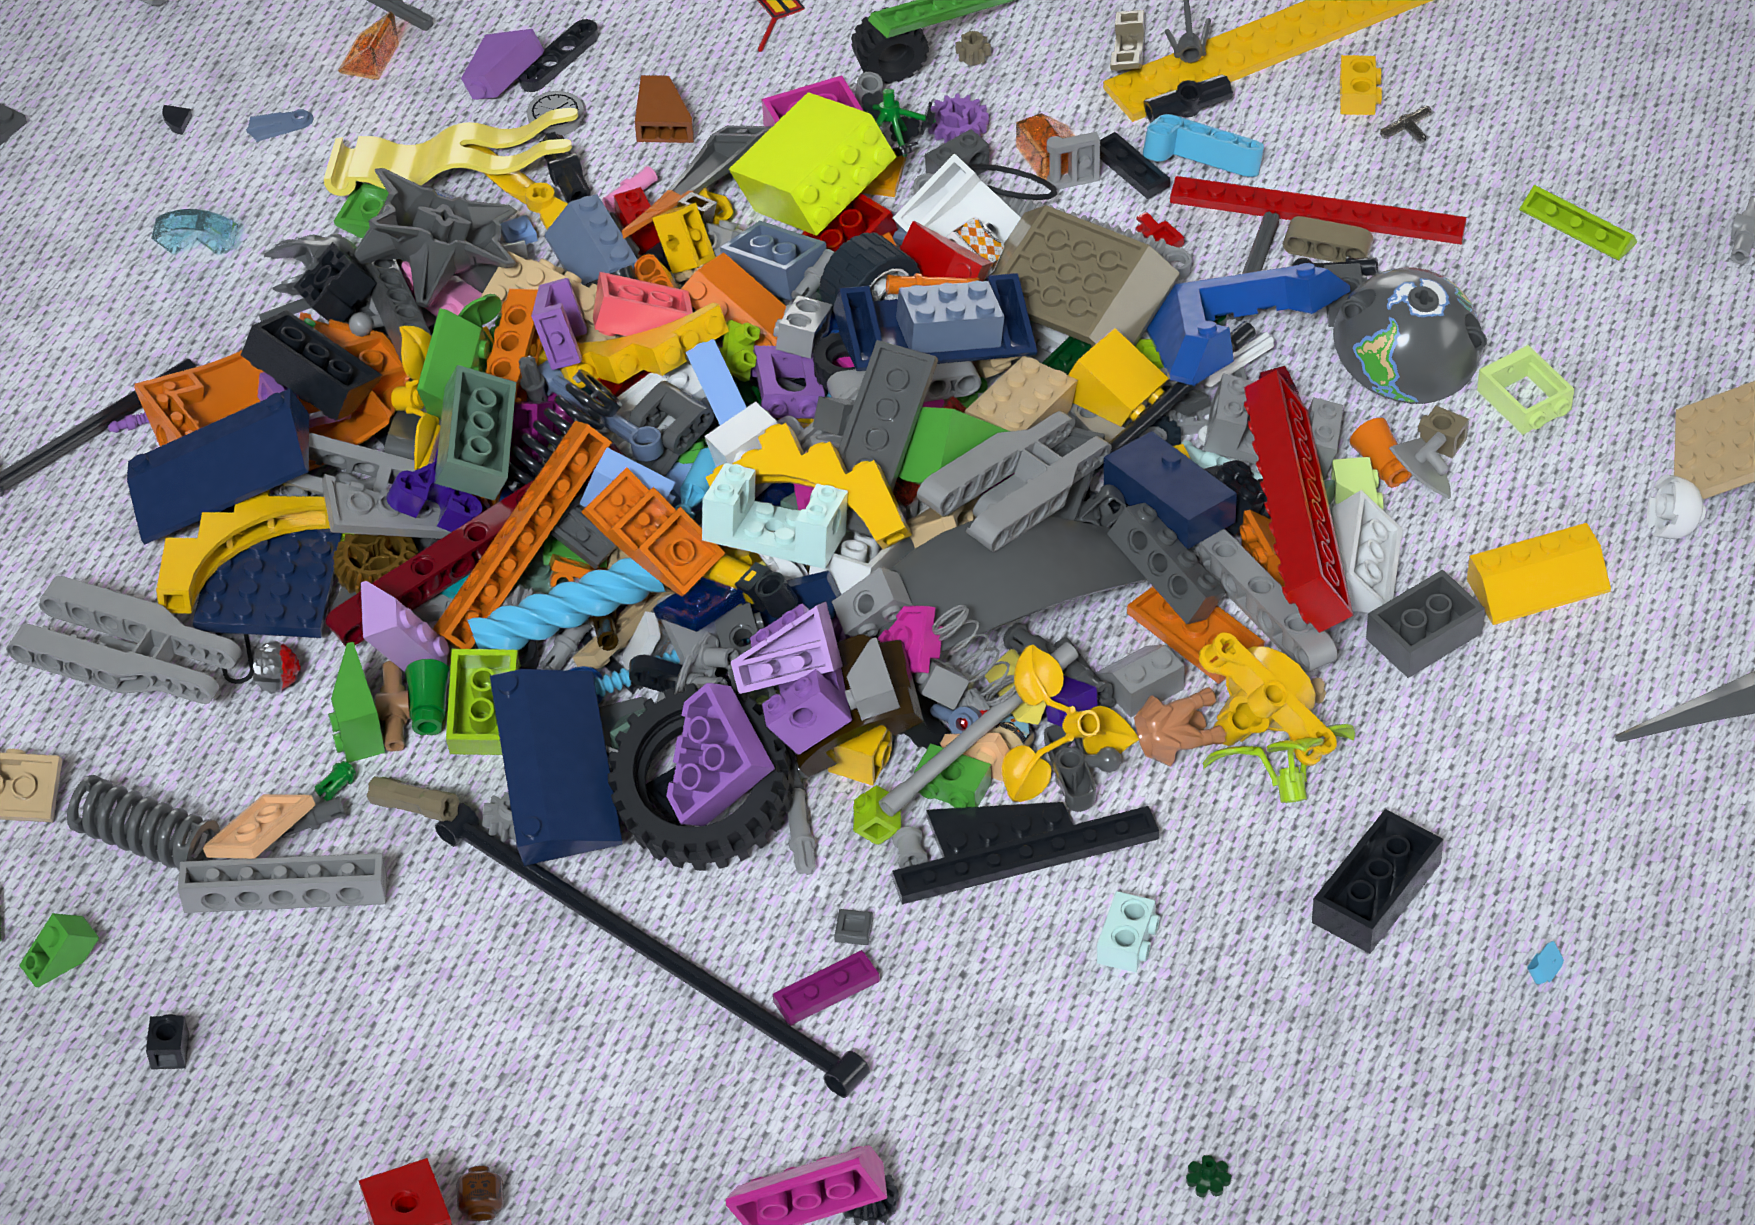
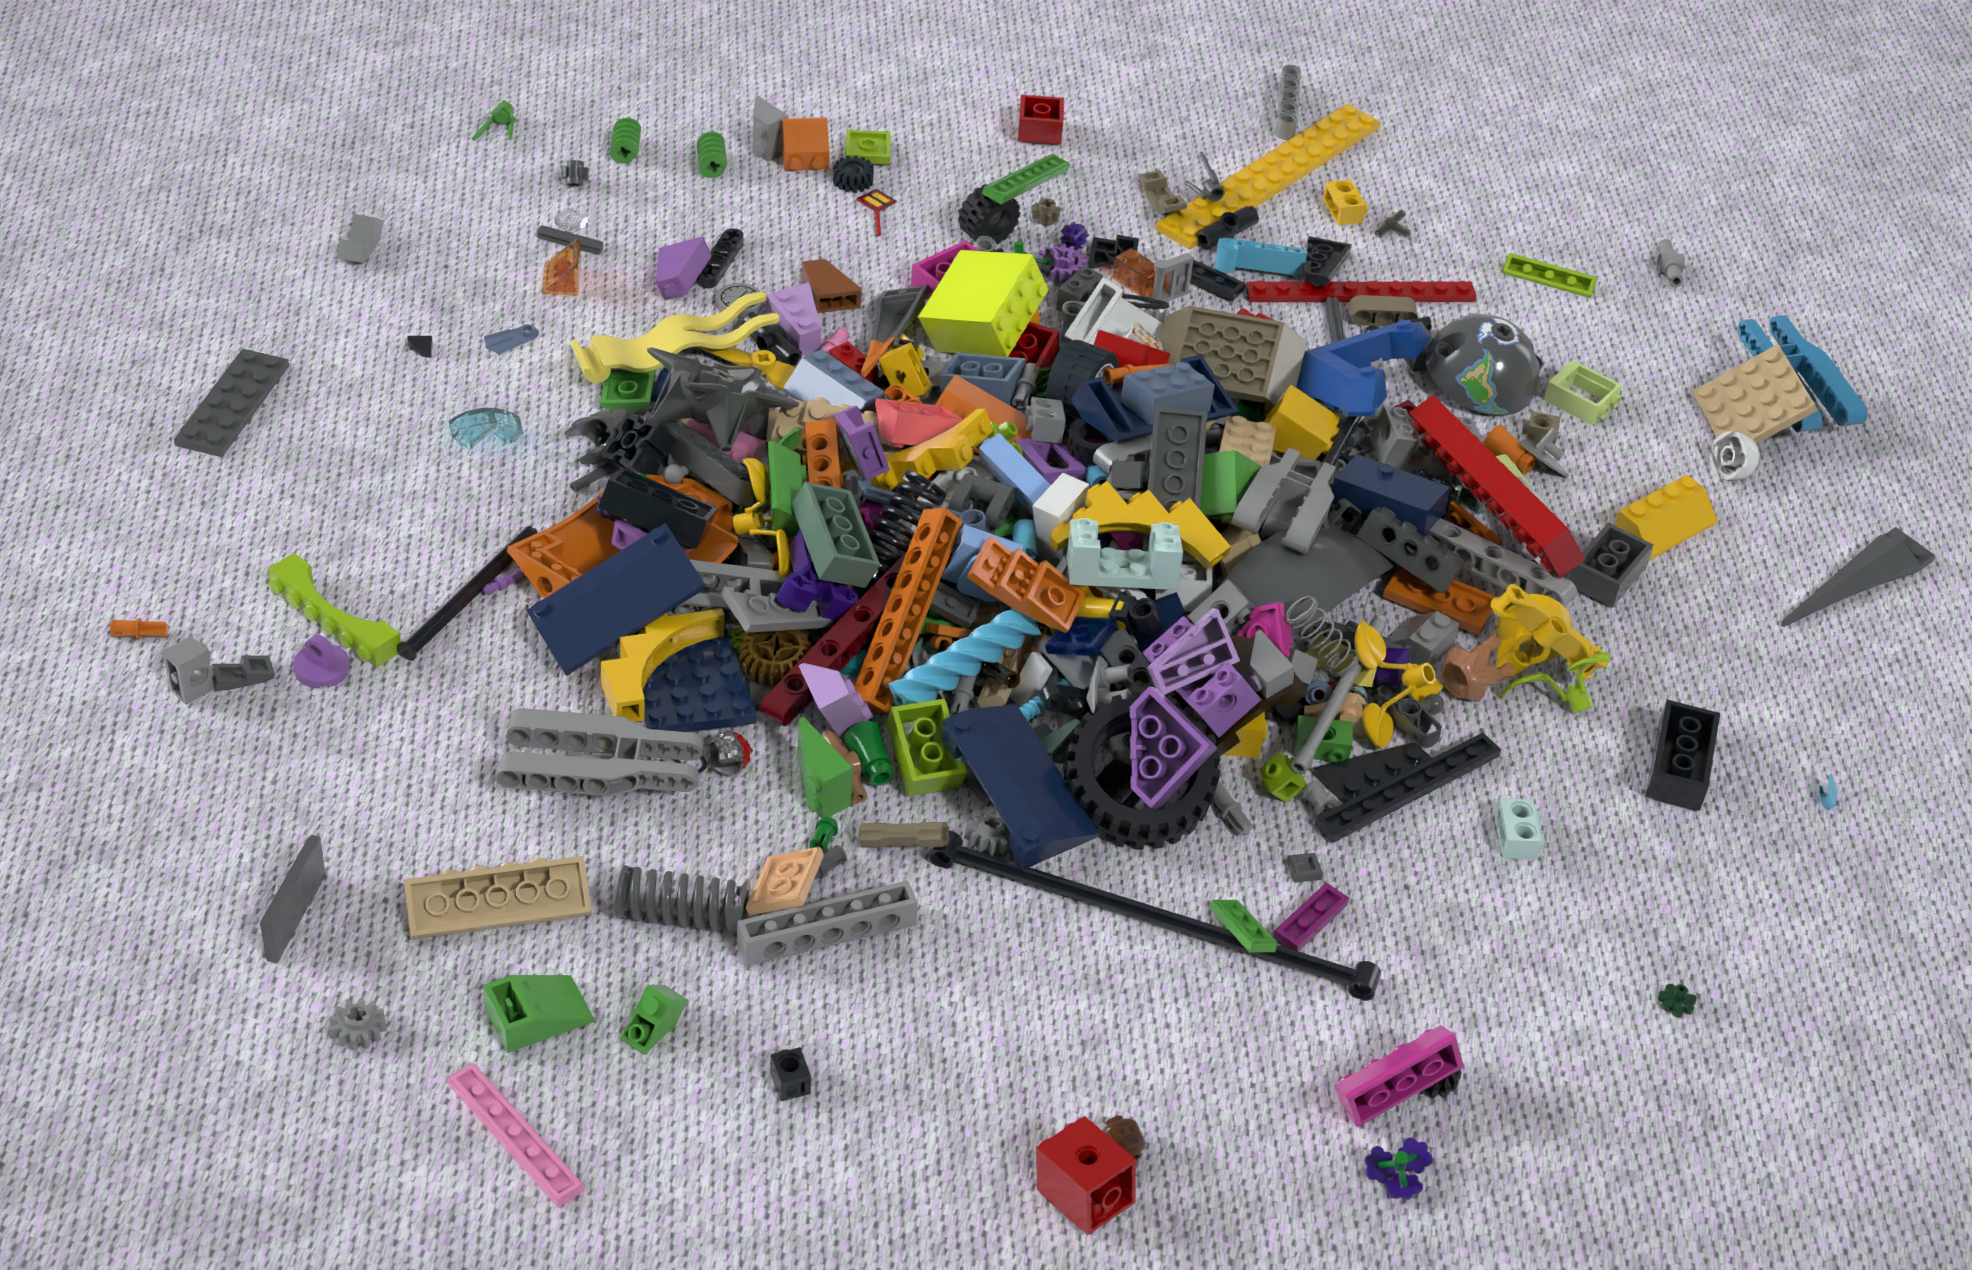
camera: 25 degrees left, 5 degrees down
(605, 145) = (797, 316): none -> lavender wedge
(736, 981) = (1243, 926): none -> bright green tile
(989, 86) = (1074, 236): none -> dark purple gear
(1023, 105) = (1105, 250): none -> black slope
(1287, 159) = (1324, 259): none -> black wing

